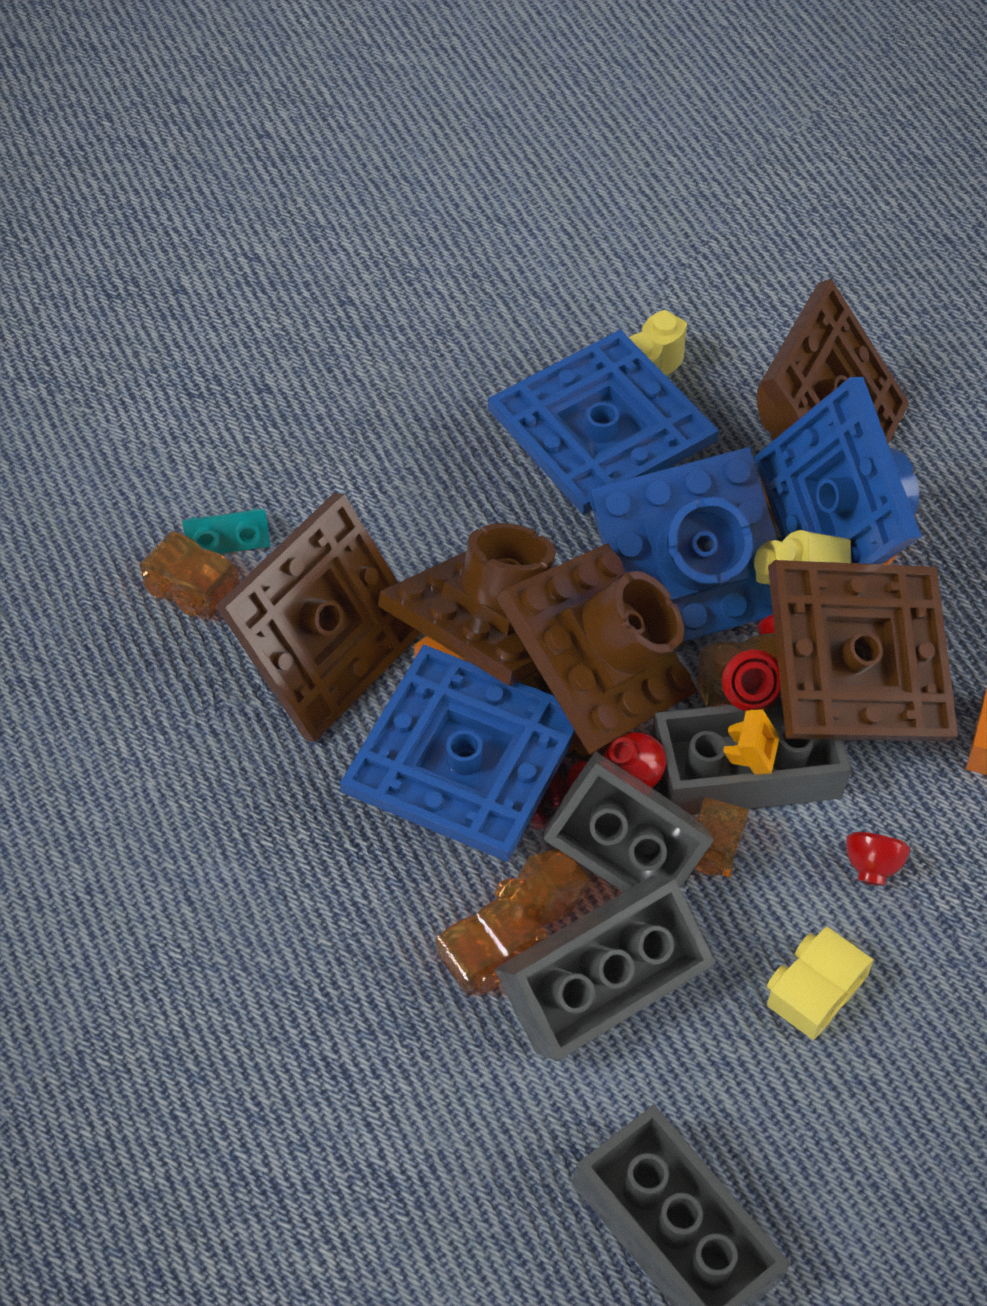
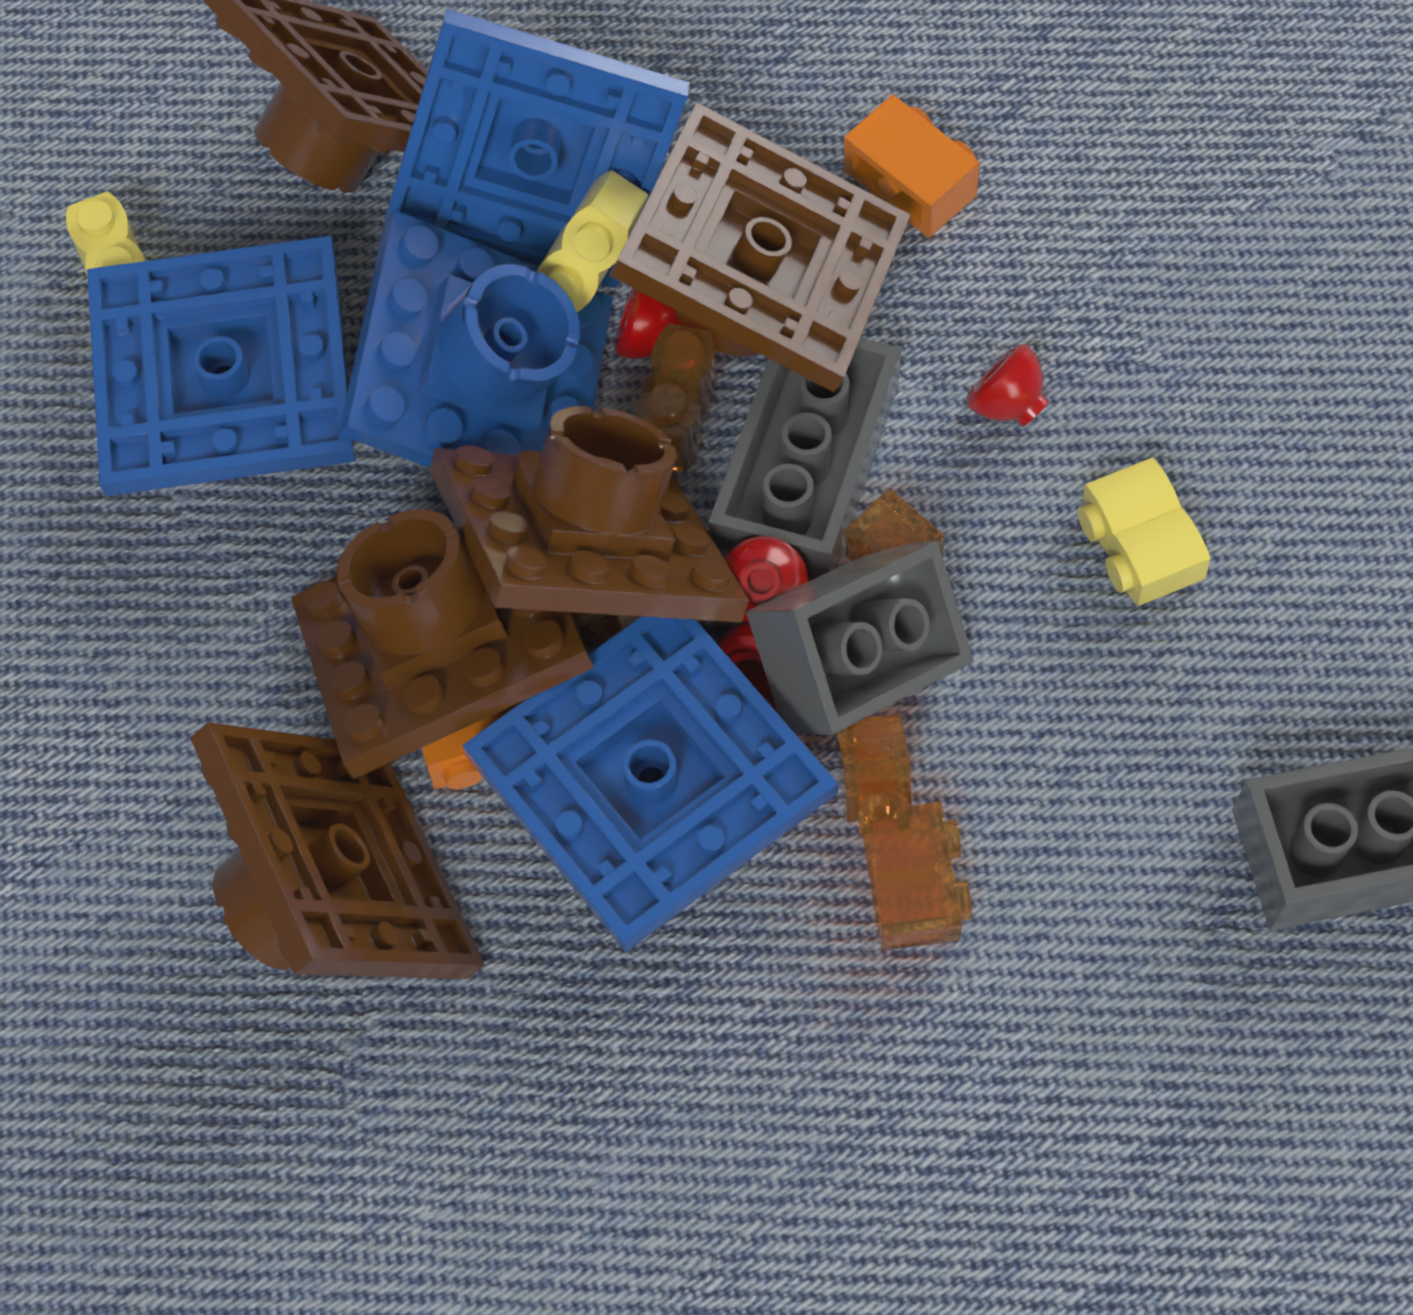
camera: 60 degrees left, 10 degrees up
(188, 575) = (117, 1018): clear orange brick -> none
(229, 531) = (76, 918): teal hinge -> none
(605, 967) = (1028, 753): dark grey brick -> none
(752, 680) = (732, 387): red brick -> none
(756, 743) = (817, 419): light orange tile -> none

